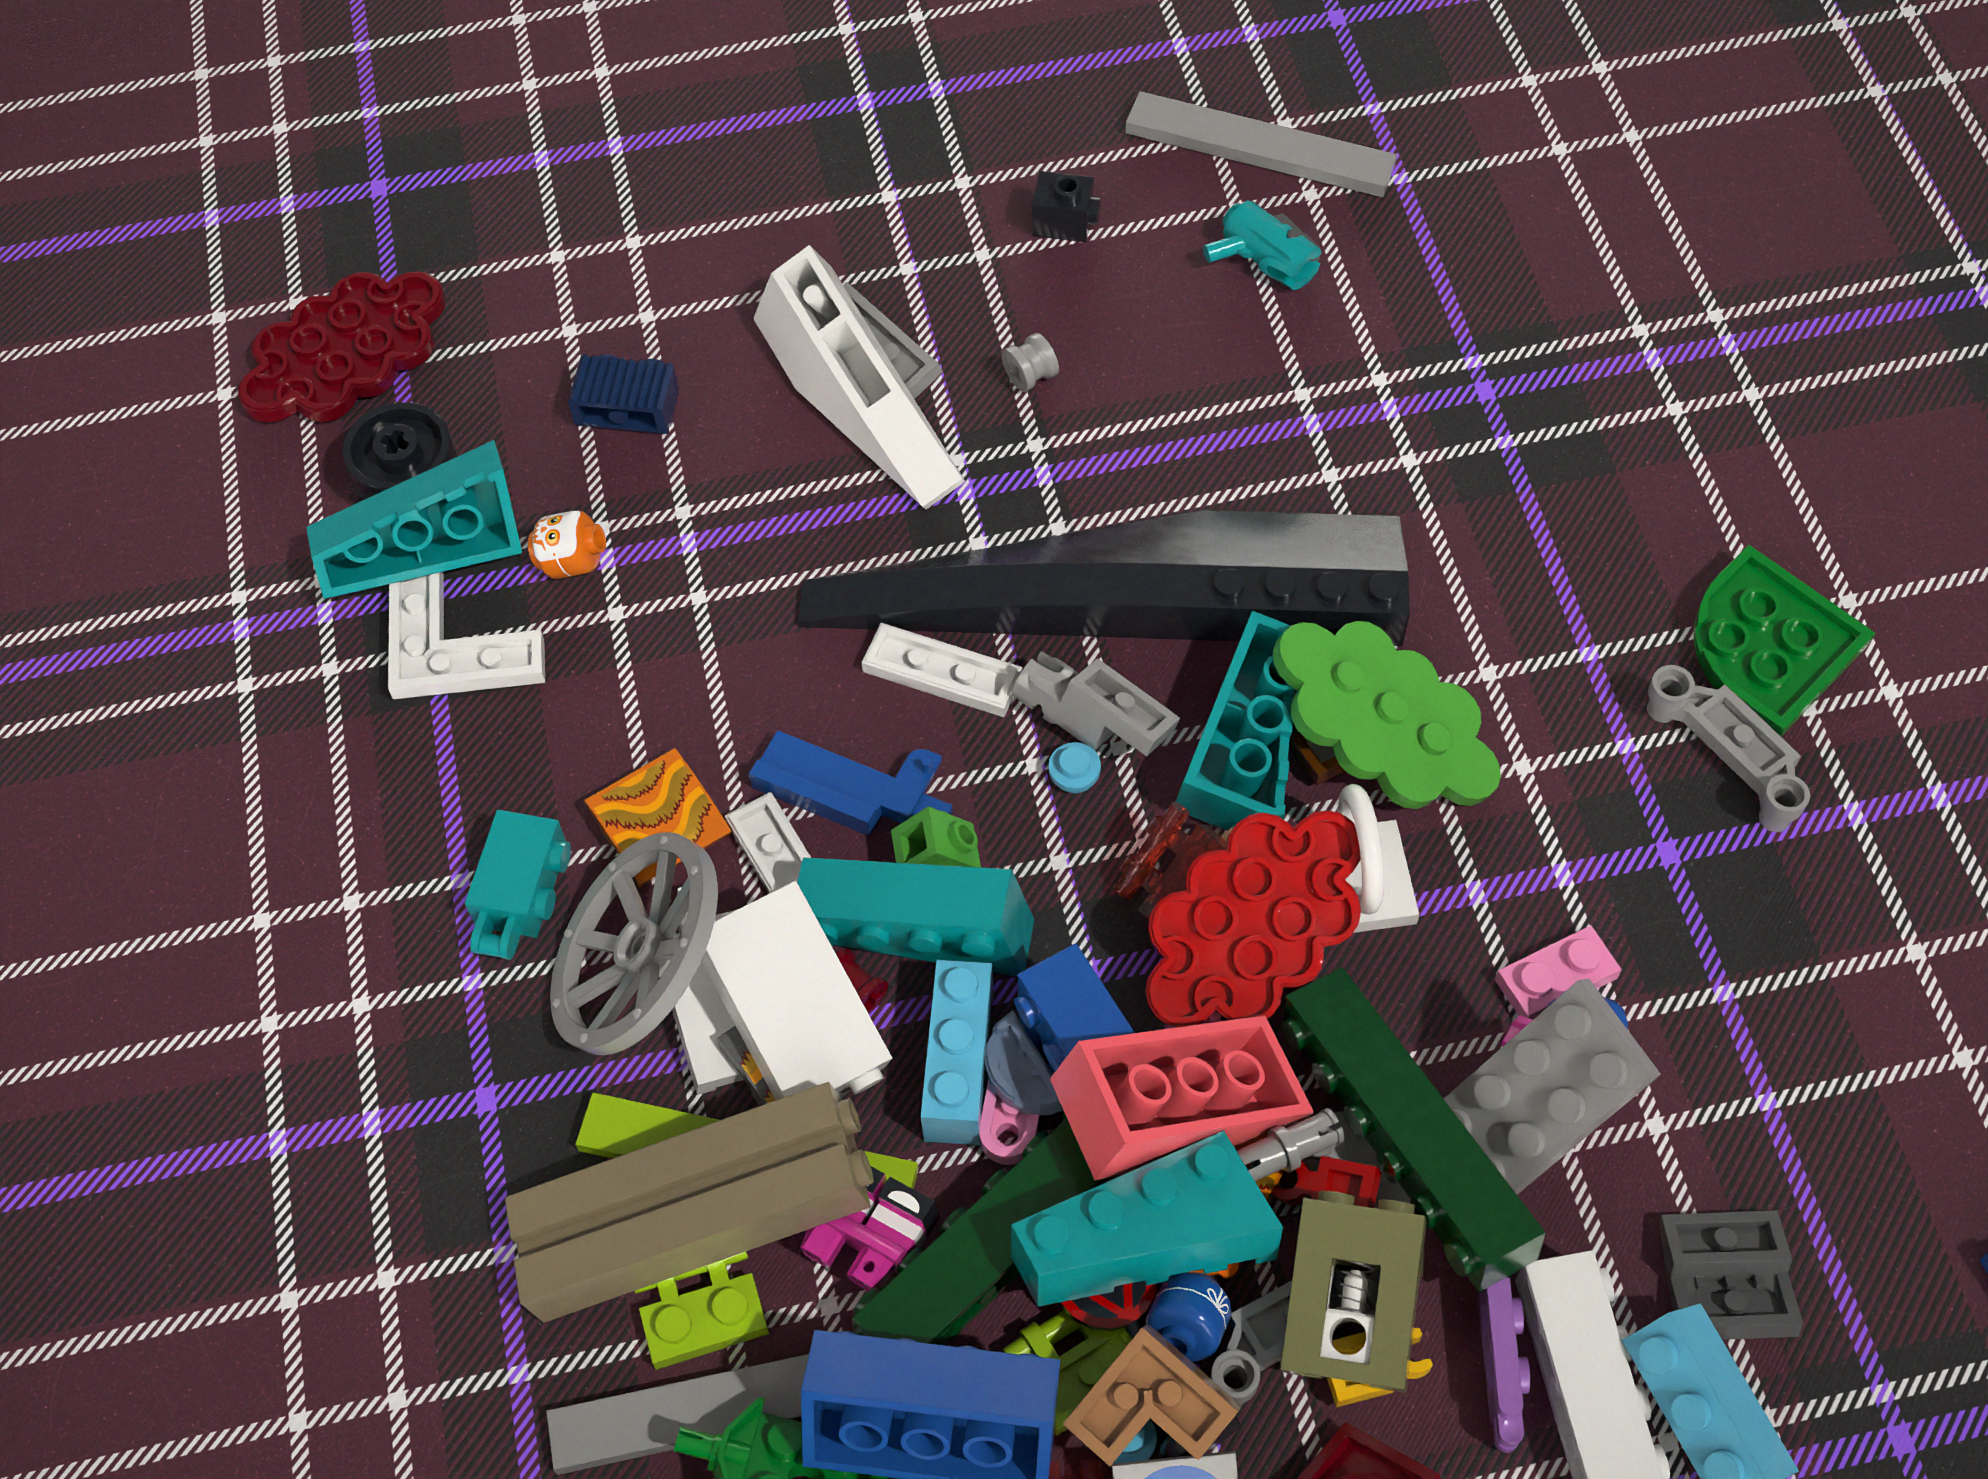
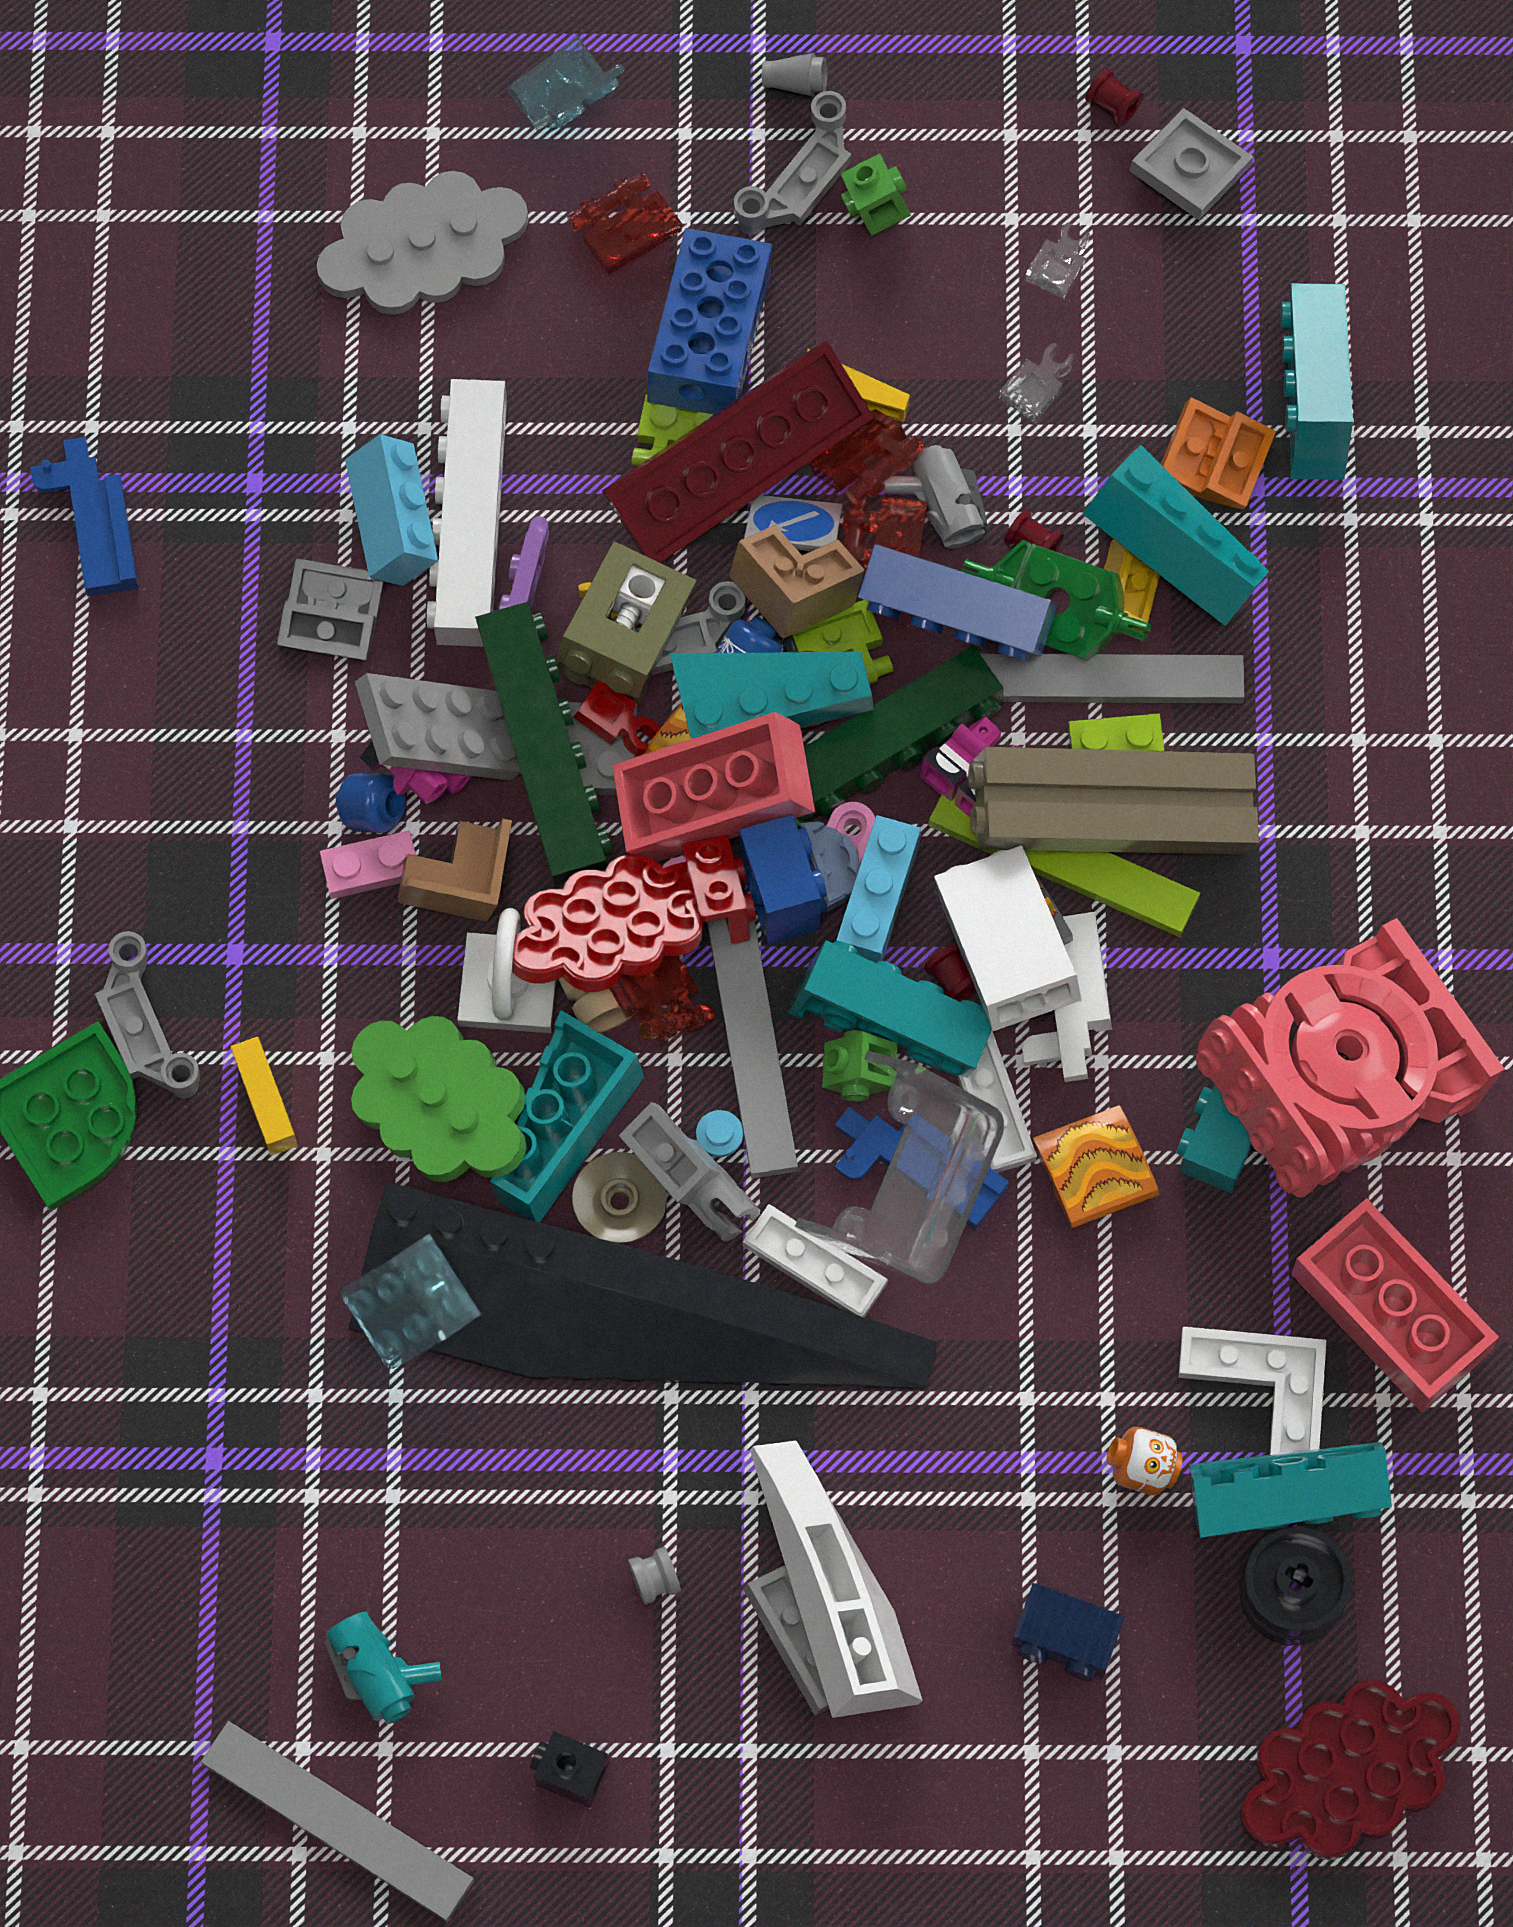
camera: 170 degrees left, 10 degrees up
(316, 728) = (1394, 1305): none -> coral brick
(322, 915) = (1331, 1114): none -> coral brick
(641, 950) = (1124, 1012): light grey wheel -> none
(842, 721) = (929, 1180): none -> clear windscreen
(1065, 868) = (753, 1052): none -> light grey tile
(1144, 985) = (717, 885): none -> red bracket
(1171, 658) = (612, 1177): none -> dark tan dish
(1288, 1146) = (641, 741): light grey pin -> none
(1334, 516) = (409, 1303): none -> clear light blue bracket
(1445, 956) = (468, 883): none -> medium nougat panel
(1573, 703) = (264, 1096): none -> yellow piece

